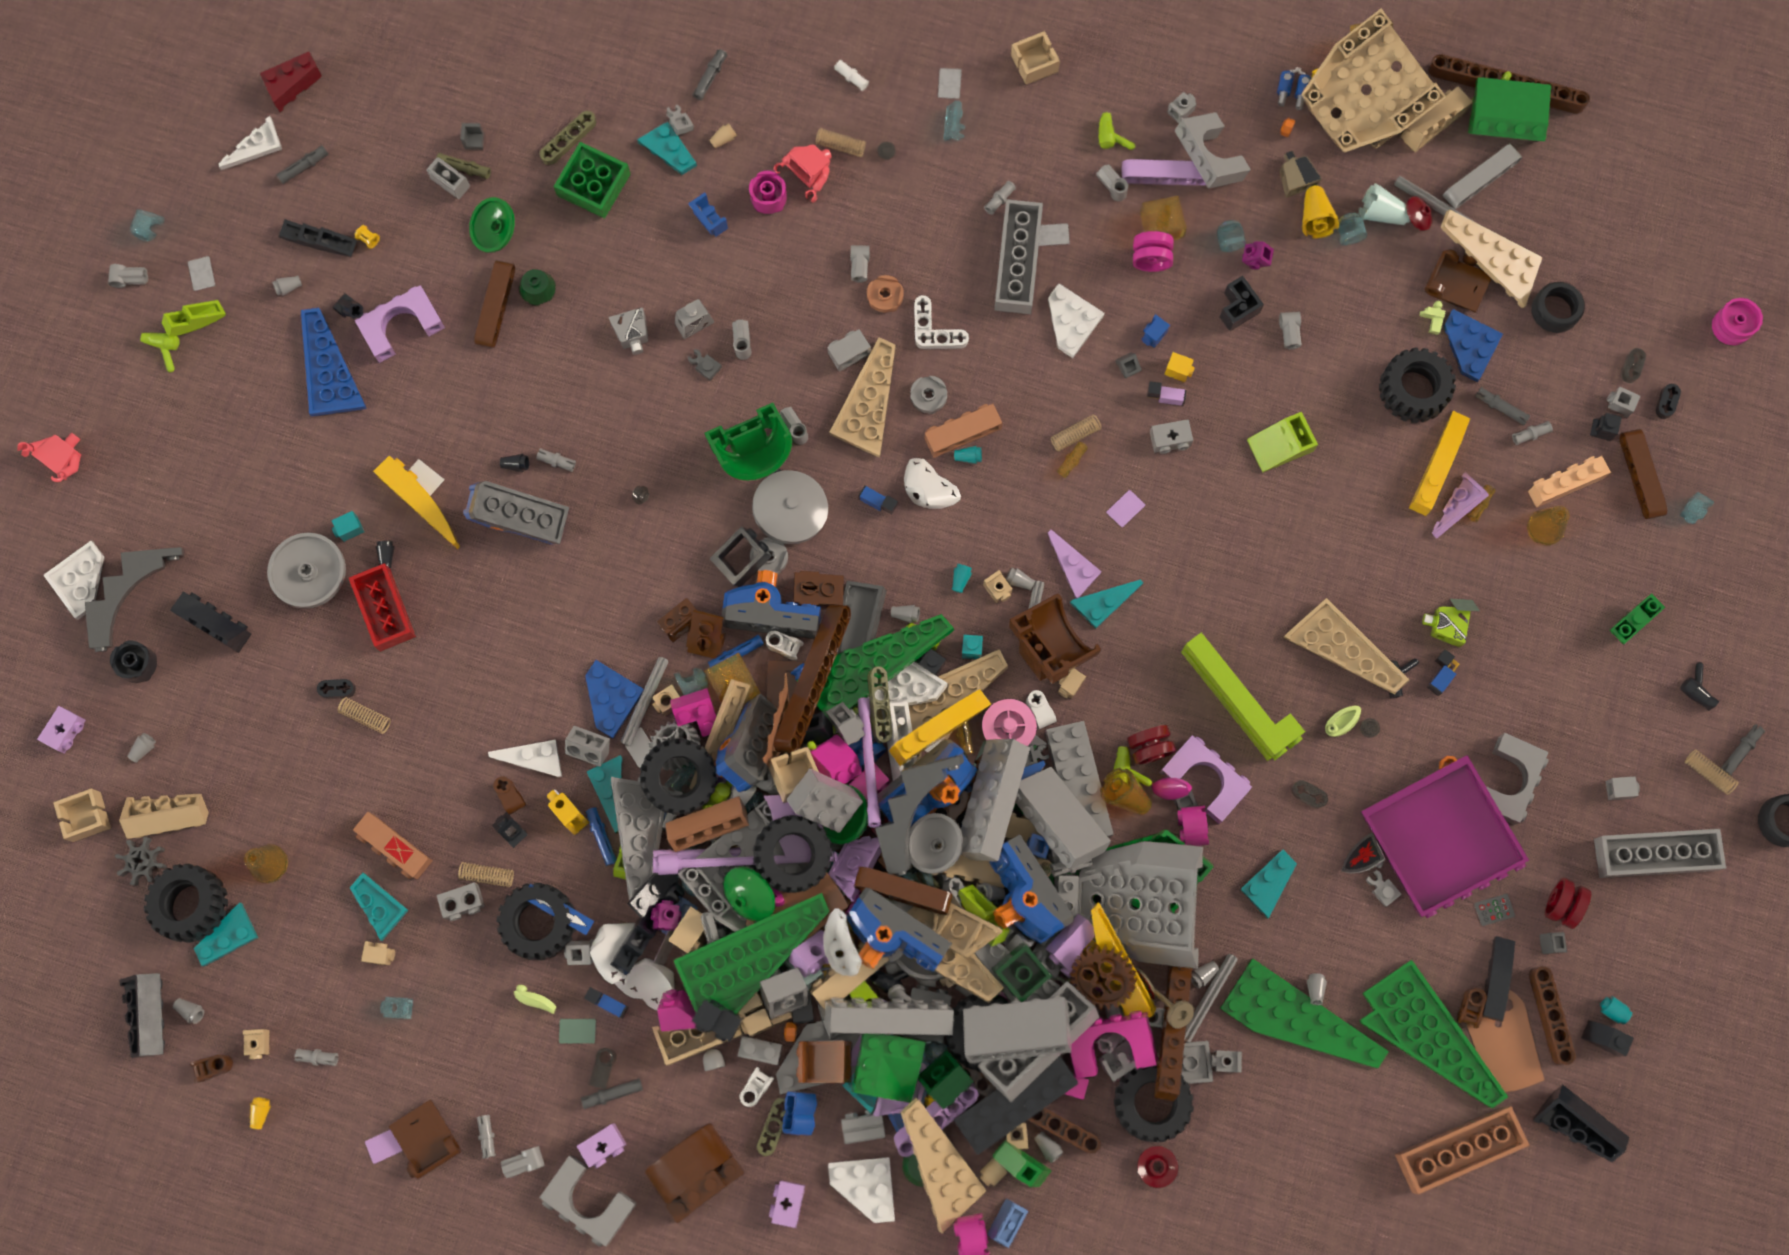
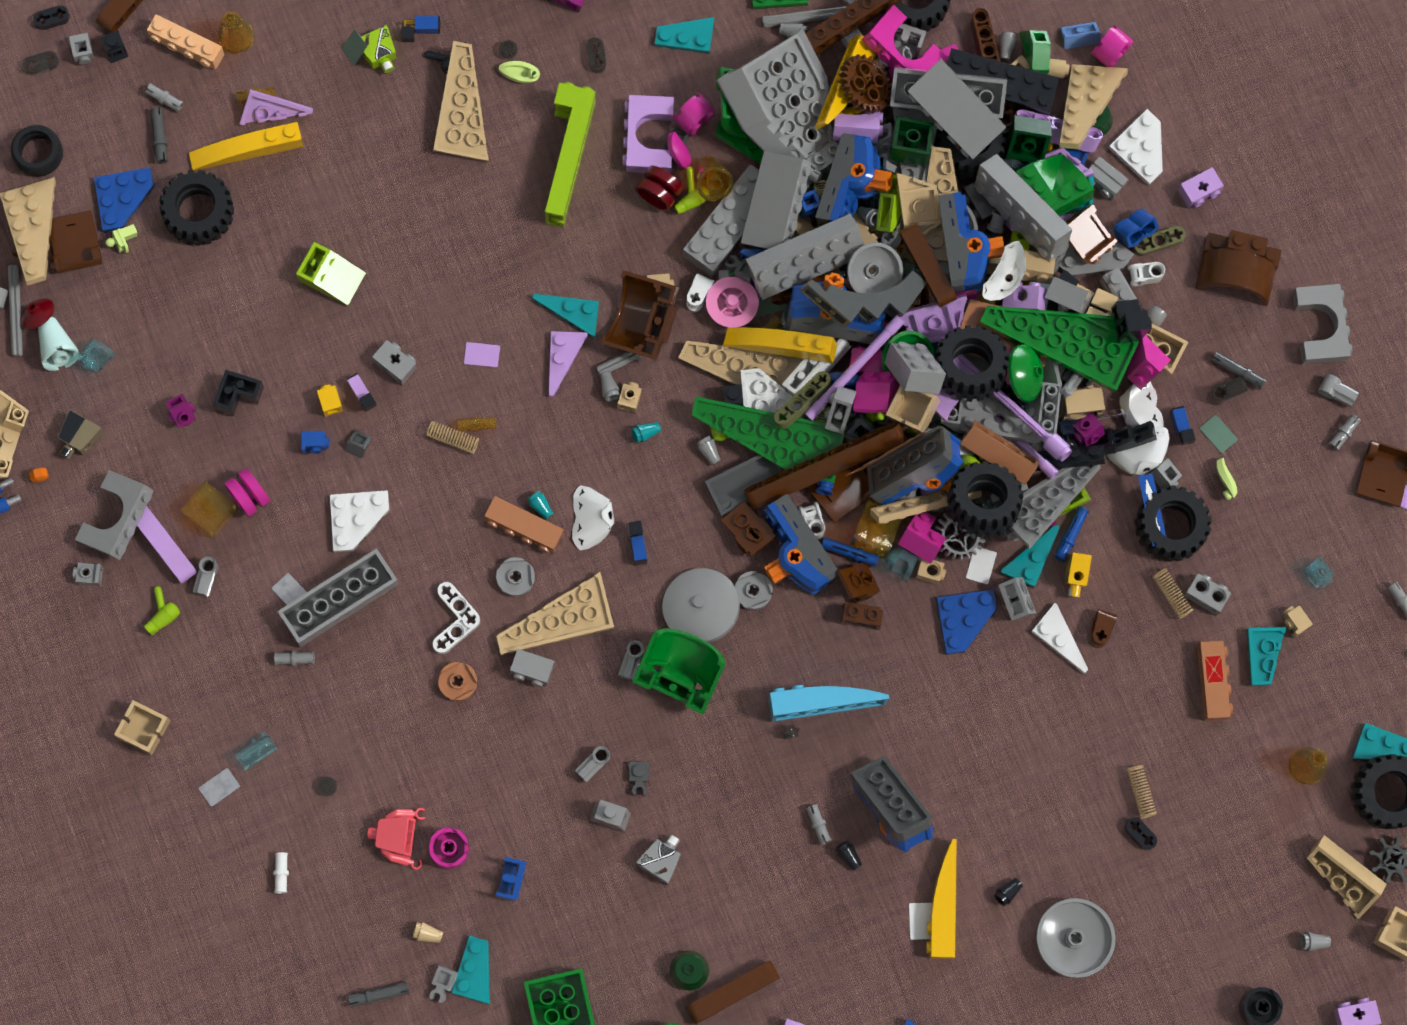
camera: 140 degrees left, 0 degrees up
(211, 622) = (1178, 978): black wedge -> none
(347, 526) = (1013, 941): teal brick -> none
(382, 607) = (1051, 851): red brick -> none
(509, 829) = (1127, 601): black window -> none
(610, 1136) = (1268, 345): lavender brick -> none
(641, 532) = (820, 700): none -> medium azure slope
(644, 701) = (945, 589): light grey axle -> none
(729, 572) = (791, 612): black window -> none
(790, 1032) = (1087, 280): orange tile -> none
(838, 140) = (344, 807): tan piece -> none
(859, 261) = (443, 727): light grey piece -> none
(972, 647) = (694, 378): teal brick -> none
(1179, 1013) = (844, 12): dark tan piece -> none
(1230, 236) = (180, 445): clear light blue helmet -> none
(1291, 324) = (220, 343): light grey piece -> none
(1318, 214) = (100, 393): yellow cone -> none

